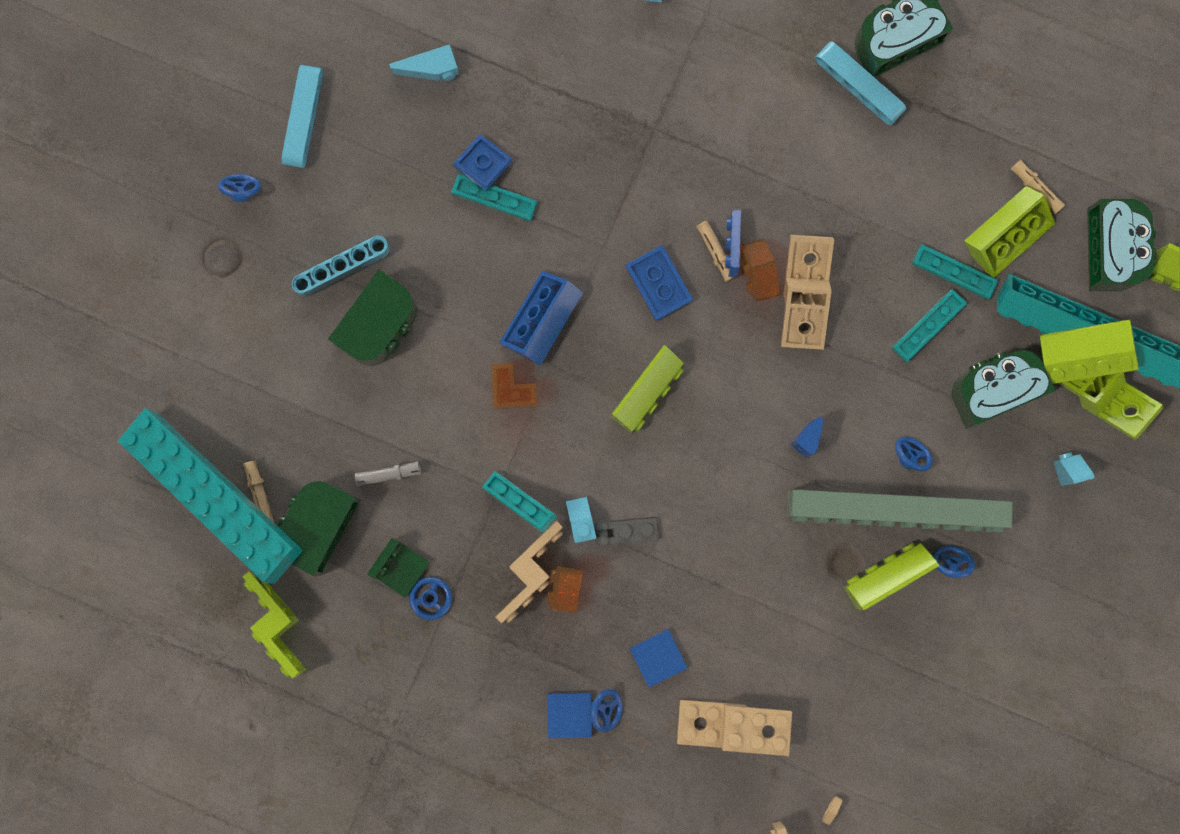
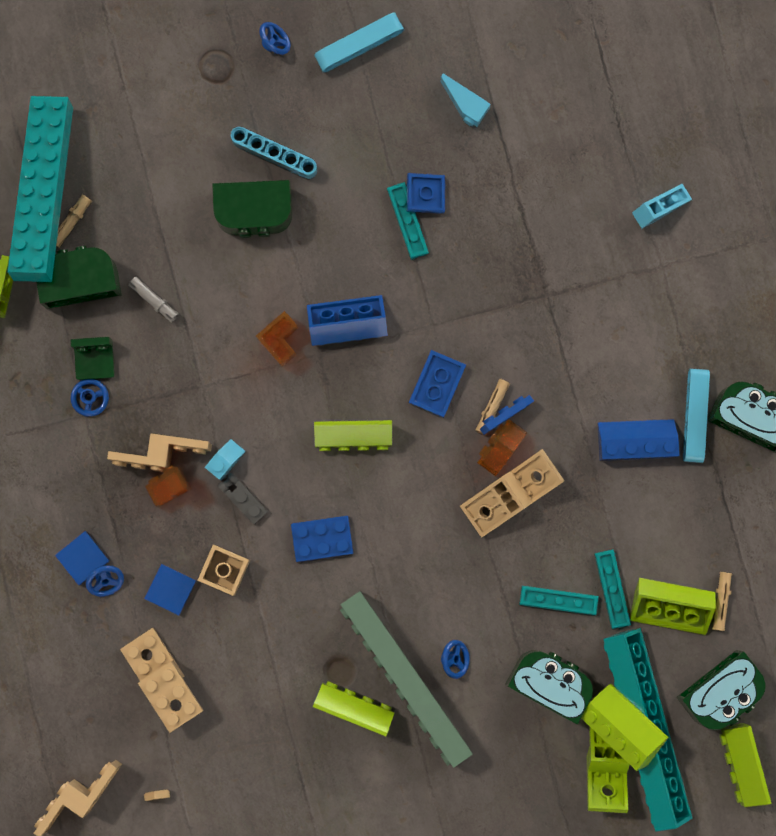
camera: 50 degrees right, 0 degrees up
(519, 502) = (203, 406): teal tile -> none
(679, 596) = (223, 570): none -> tan brick
(716, 489) = (322, 538): none -> blue plate
(808, 440) = (407, 574): blue tile -> none
(842, 149) = (638, 440): none -> blue slope
(952, 564) = (398, 747): blue piece -> none
(1072, 469) = (533, 781): medium azure slope -> none

